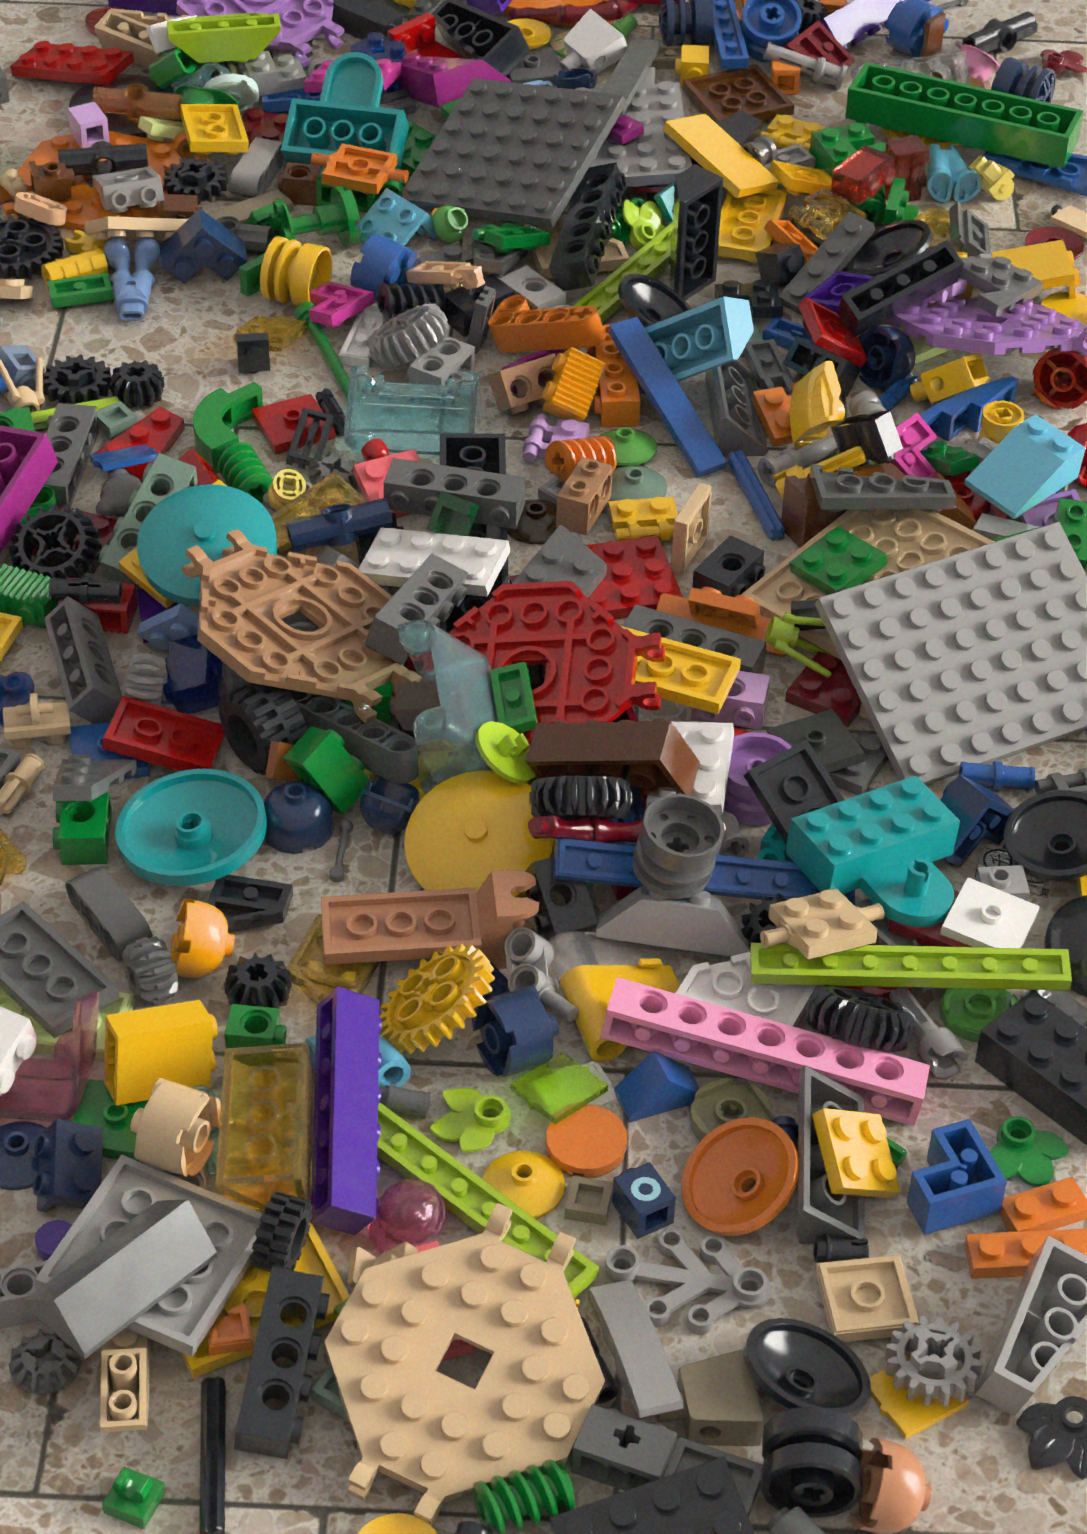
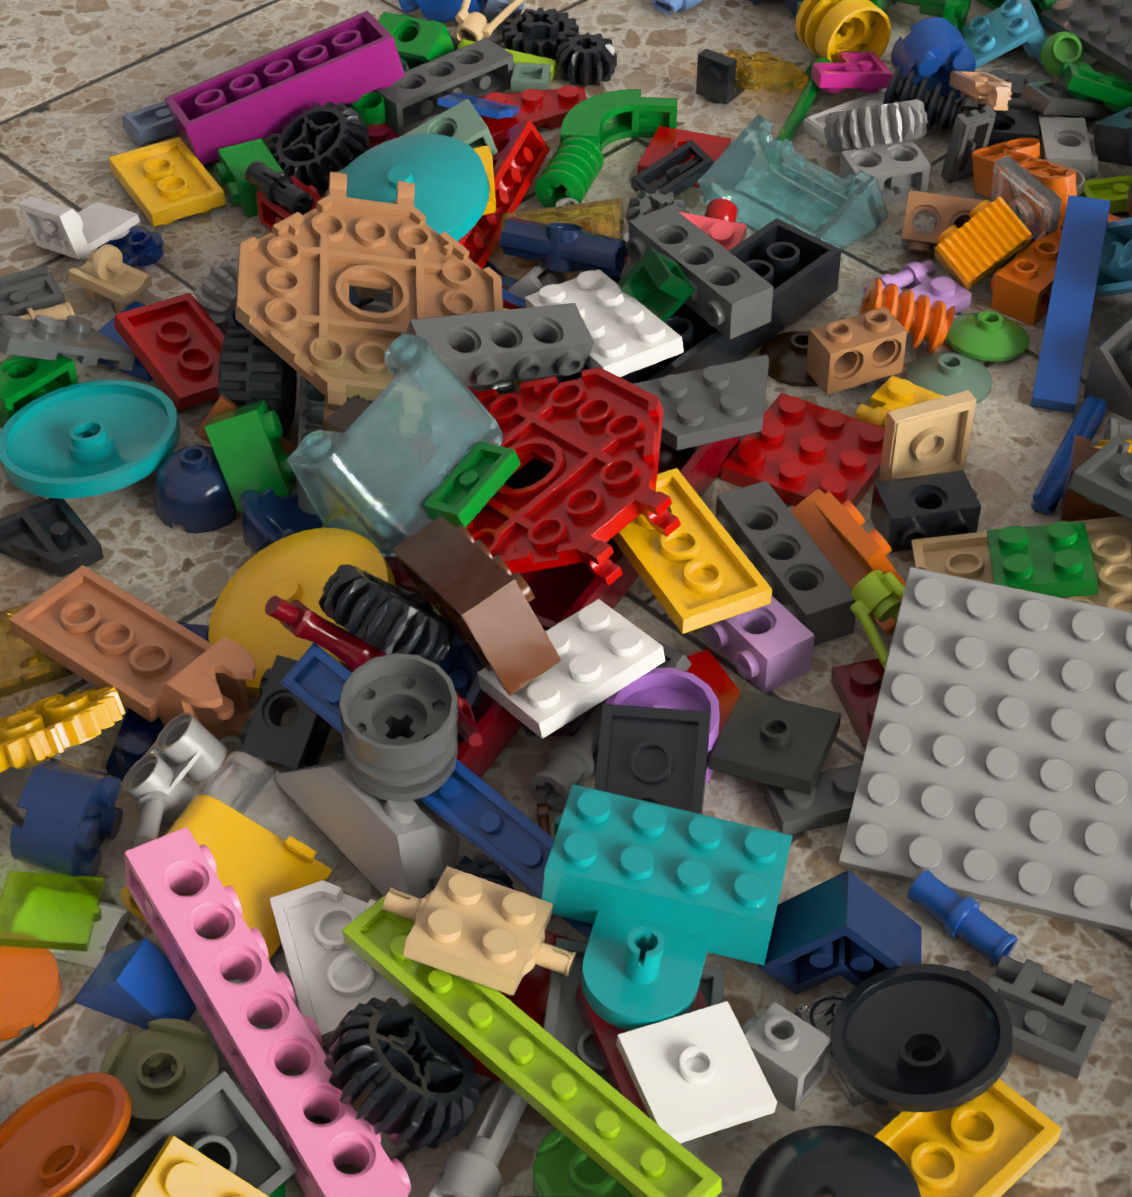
camera: 45 degrees right, 0 degrees up
(83, 661) = (210, 244): dark grey brick -> none
(281, 495) = (569, 185): light yellow wheel -> none
(337, 872) = (170, 565): dark grey hinge -> none
(504, 751) = (382, 521): lime piece -> none
(585, 337) = (1027, 197): none -> clear plate

